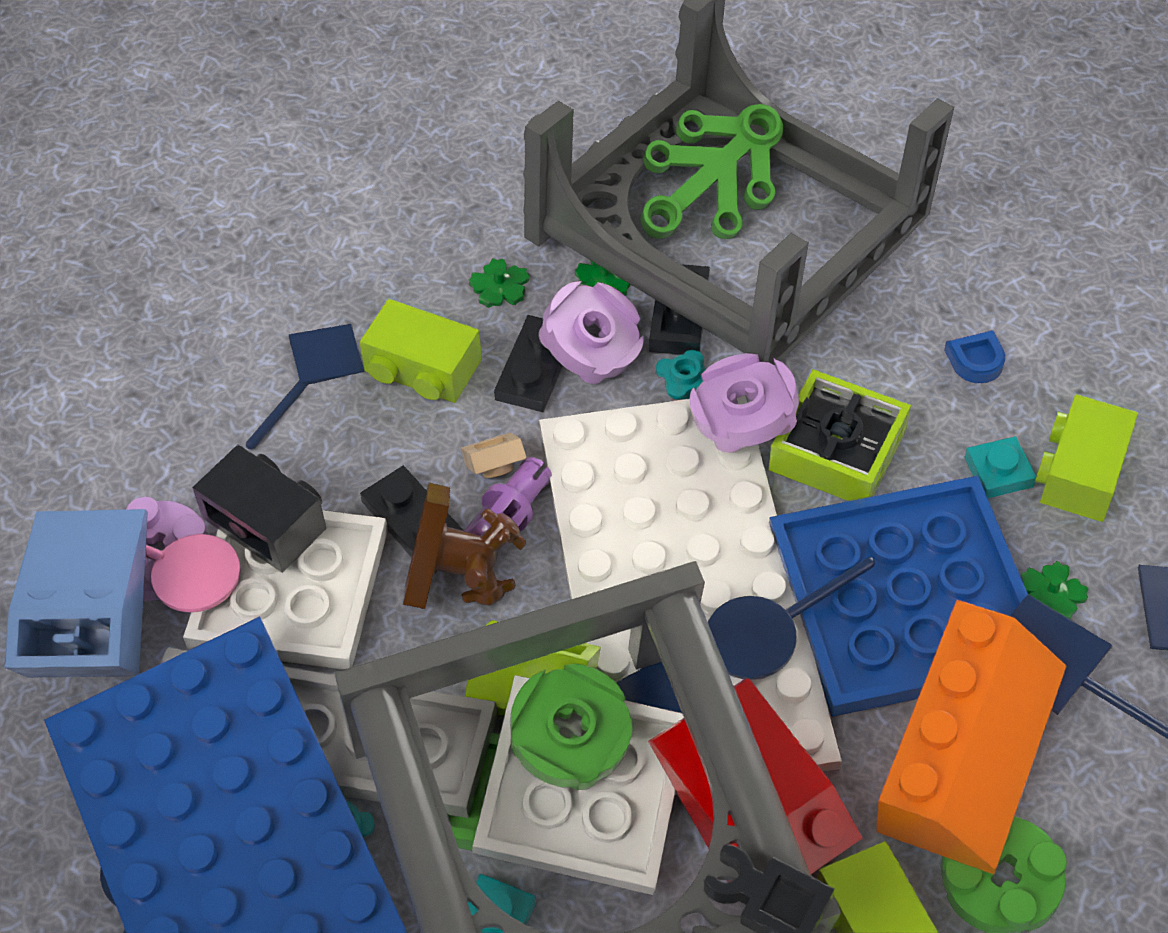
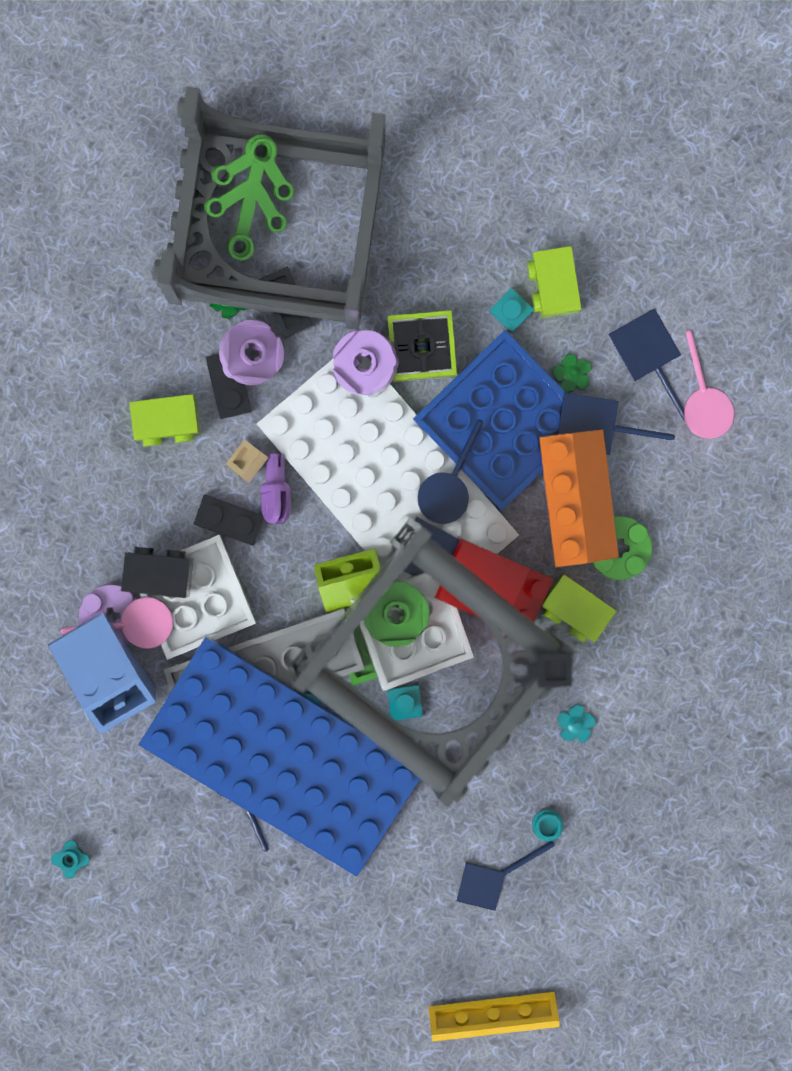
camera: 30 degrees left, 35 degrees up
(318, 358) = (110, 445): dark blue piece -> none
(458, 552) = (264, 542): reddish brown piece -> none
(499, 283) = (172, 339): green plant -> none
(679, 385) = (324, 346): teal plate -> none
(976, 357) = (464, 239): blue tile -> none

